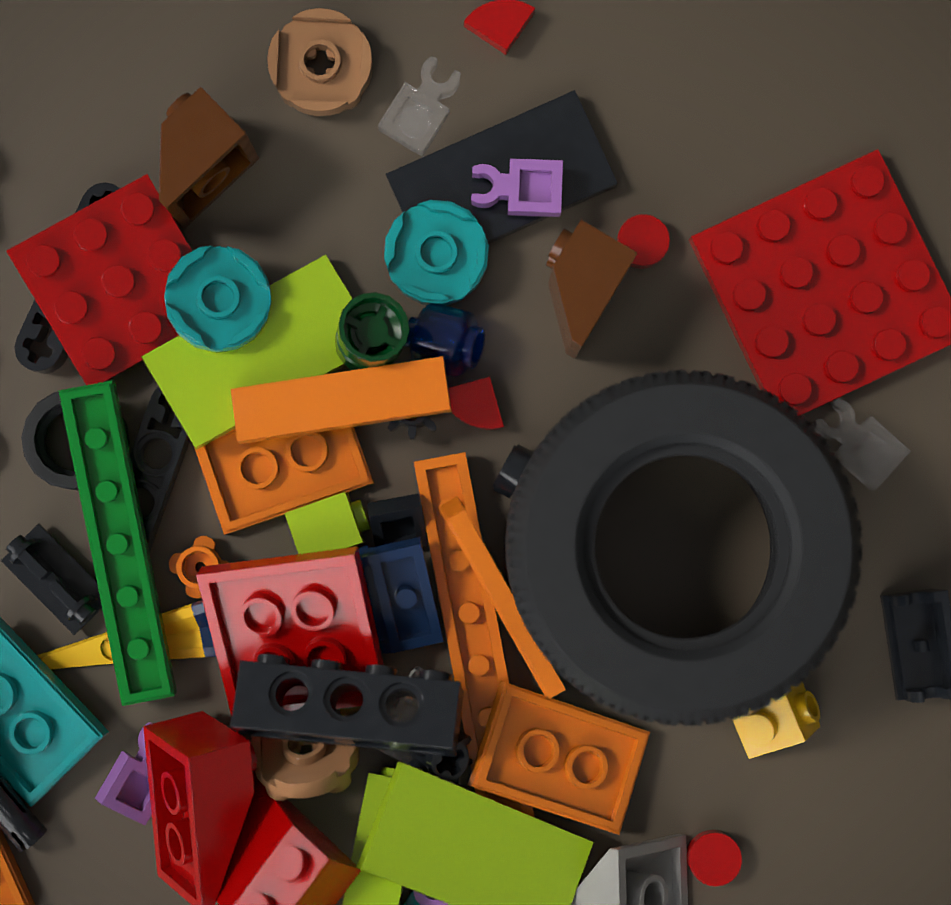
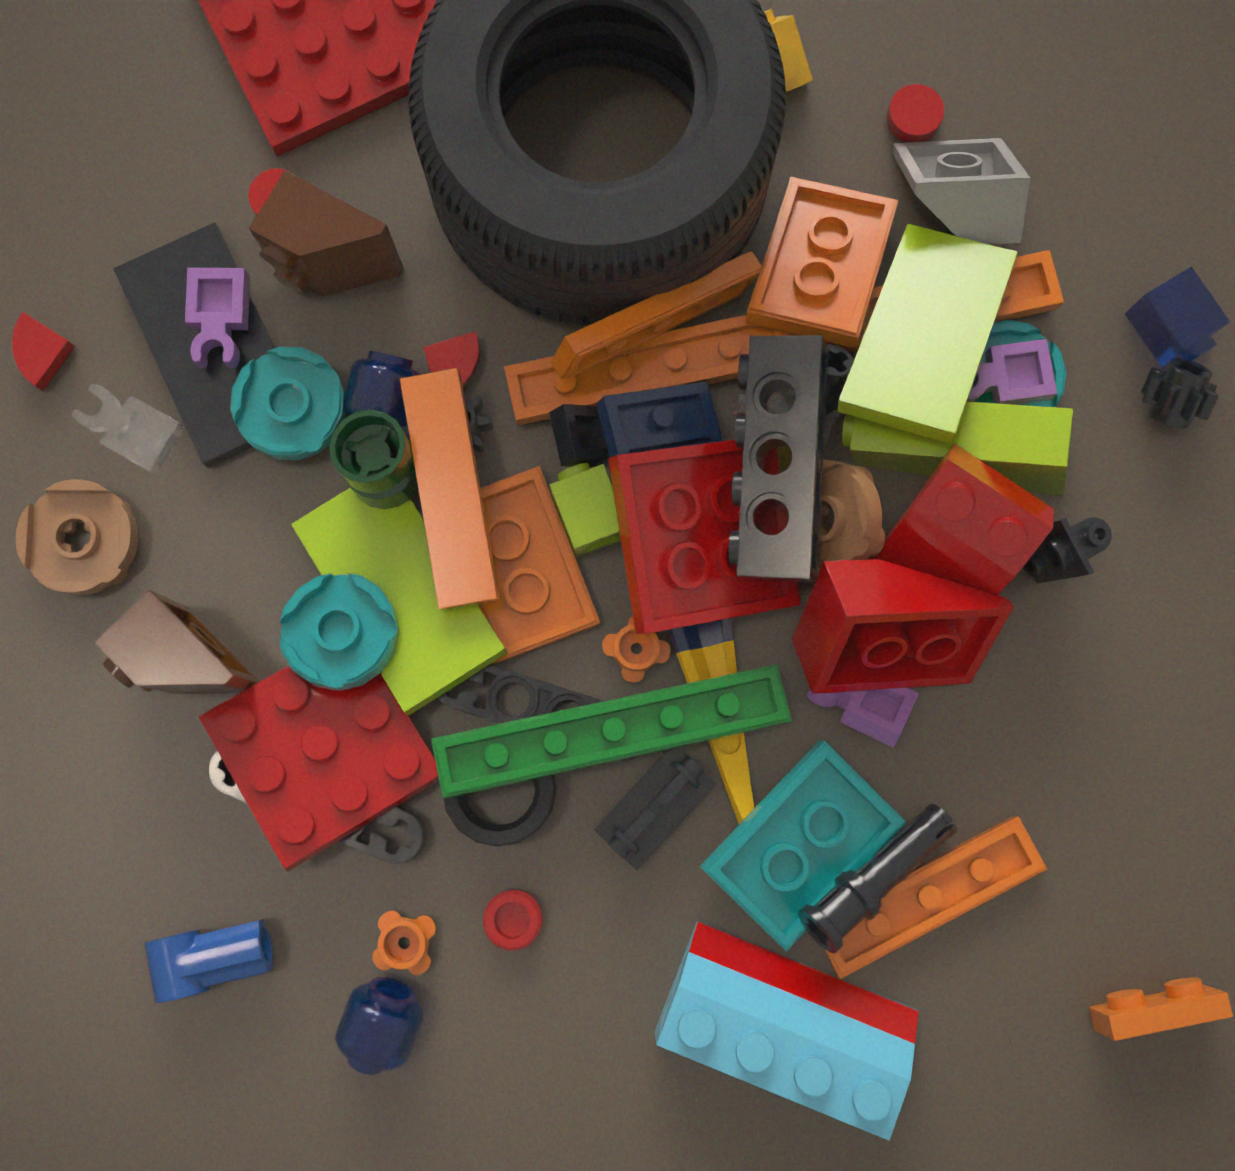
camera: 90 degrees left, 5 degrees down
(512, 470) = (523, 318): black tile -> none

